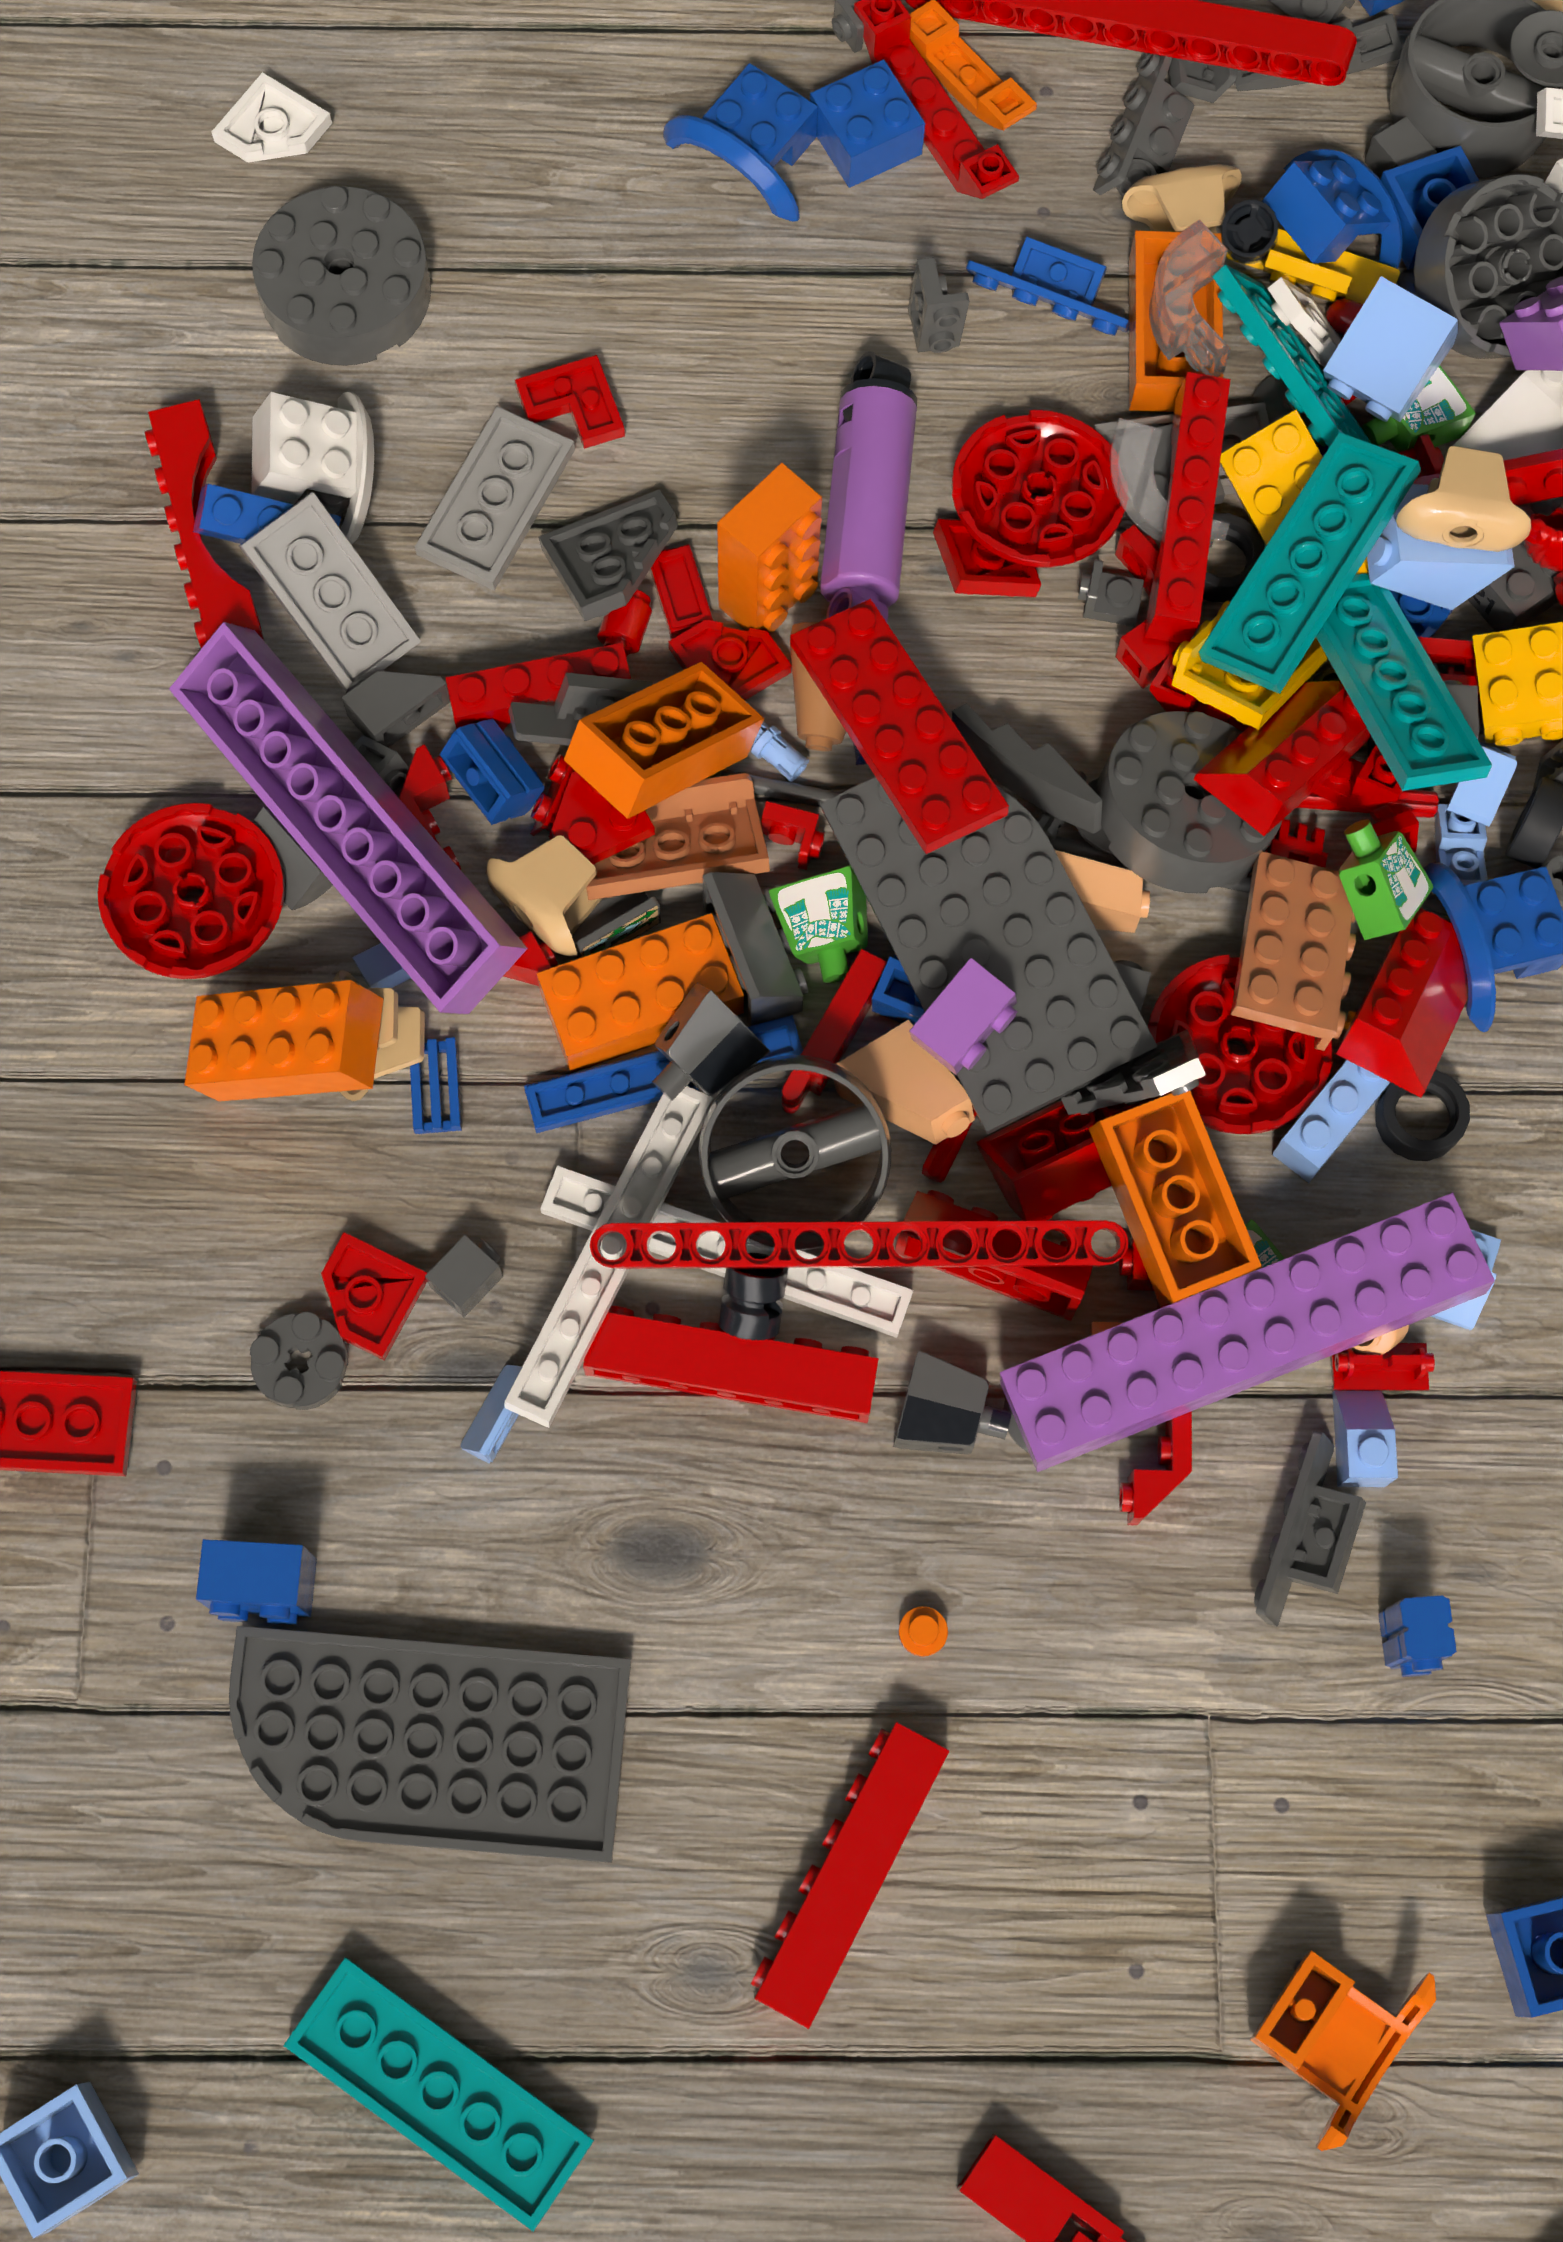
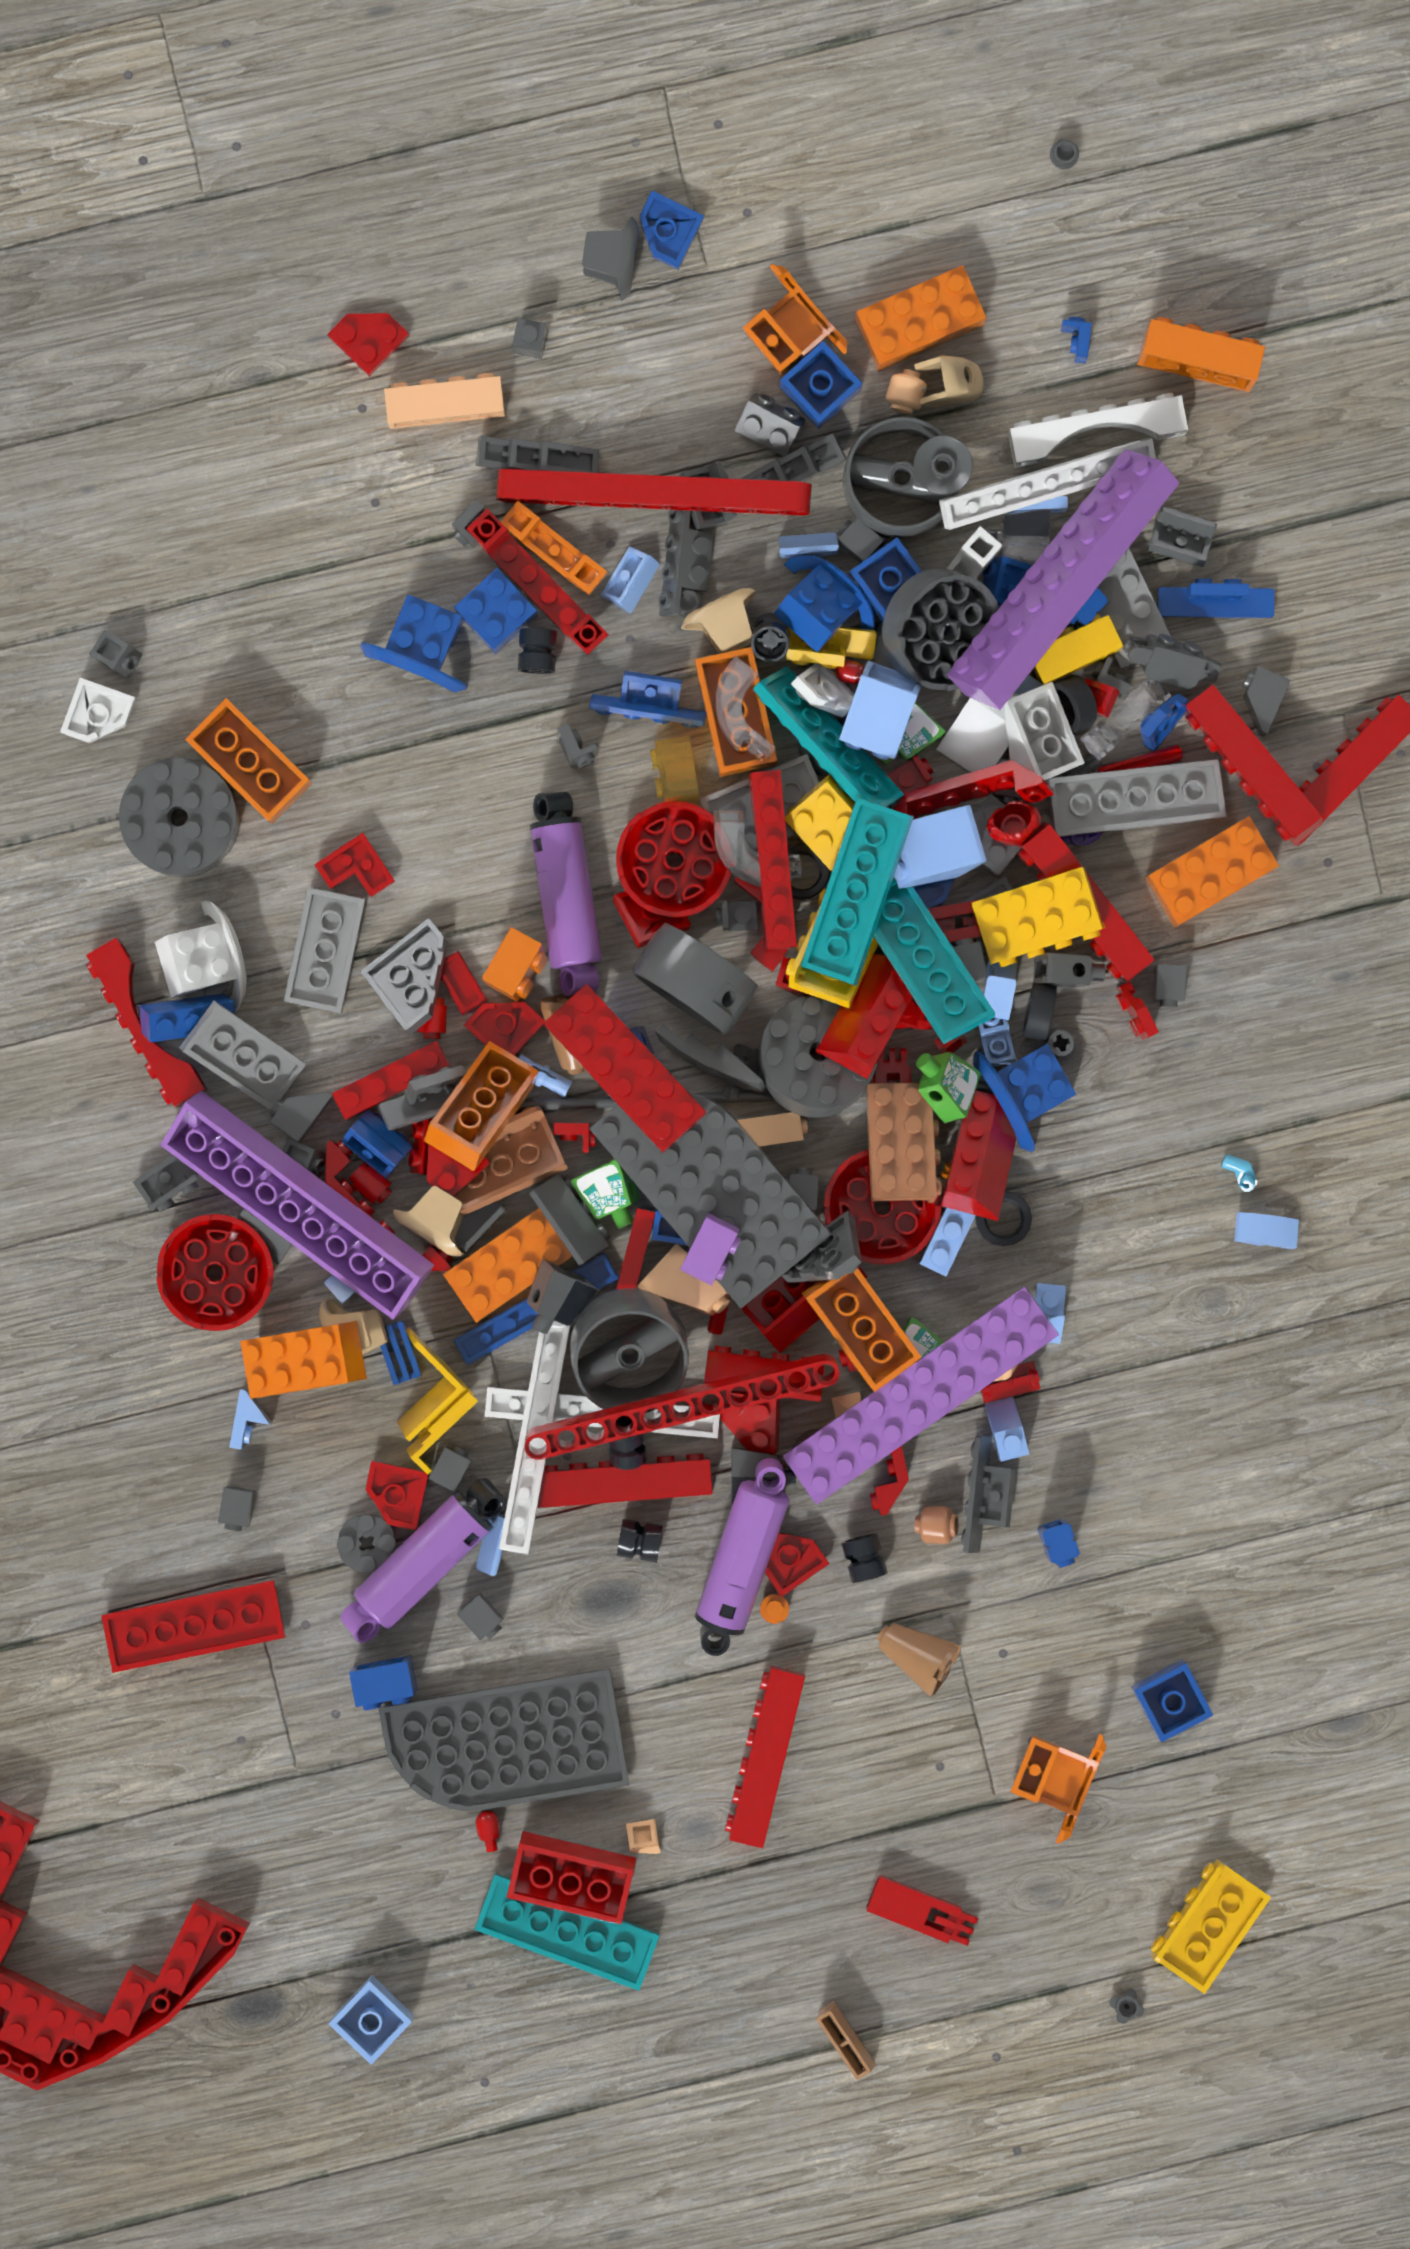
camera: 15 degrees left, 15 degrees up
(112, 1251) = (236, 1507): none -> dark grey brick
(164, 753) = (165, 1182): none -> dark grey bracket
(171, 1112) = (246, 1411): none -> light blue slope
(325, 59) = (116, 654): none -> dark grey bracket
(357, 1878) = (488, 1829): none -> red cylinder
(377, 1404) = (423, 1560): none -> medium lavender piece
(445, 1521) = (481, 1617): none -> dark grey brick
(464, 224) = (248, 761): none -> orange brick
(466, 828) = (370, 1184): none -> red brick
(471, 1996) = (571, 1877): none -> red slope
(478, 1175) = (436, 1409): none -> yellow piece
(611, 1961) = (643, 1837): none -> light nougat slope
(733, 1462) = (639, 1540): none -> black wheel
(893, 1524) = (742, 1557): none -> medium lavender piece
(911, 184) = (537, 649): none -> black wheel
(961, 1317) = (755, 1425): none -> red plate
(964, 1556) = (793, 1562): none -> red plate
(1034, 635) = (694, 978): none -> dark grey cylinder
(1064, 137) = (630, 579): none -> light blue slope
(1071, 364) = (676, 769): none -> clear yellow brick
(1090, 1582) = (864, 1558): none -> black wheel
(1147, 1766) = (919, 1655): none -> medium nougat cone
(1219, 1560) = (937, 1524): none -> nougat head
(1297, 143) = (809, 544): none -> light blue slope
(1467, 505) = (946, 837): tan piece -> none

